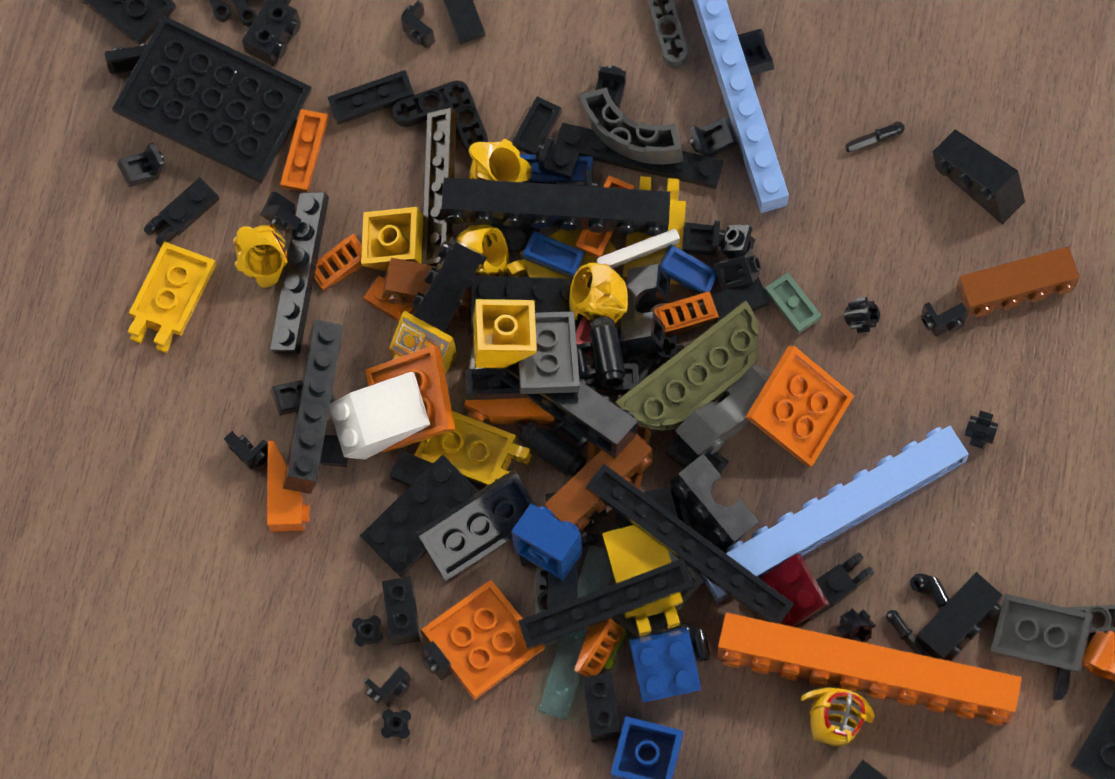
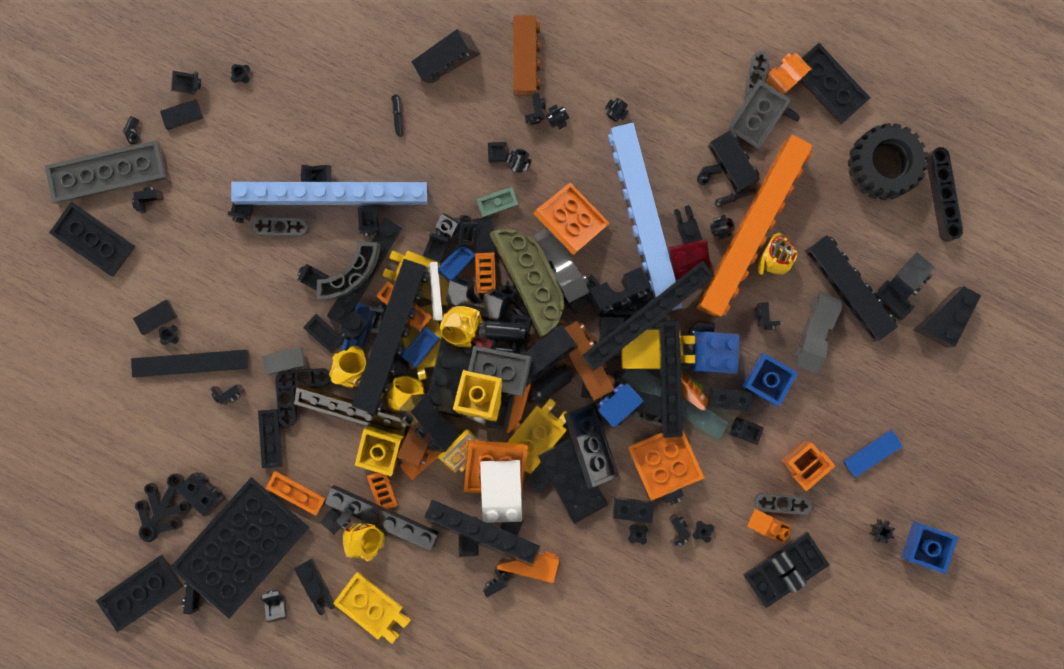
camera: 80 degrees left, 15 degrees up
(483, 84) = (284, 361): none -> dark grey slope
(562, 747) = (746, 431): none -> black bracket
(742, 723) = (763, 316): none -> black bracket
(867, 284) = (497, 152): none -> black tile
(943, 350) = (557, 116): none -> black gear

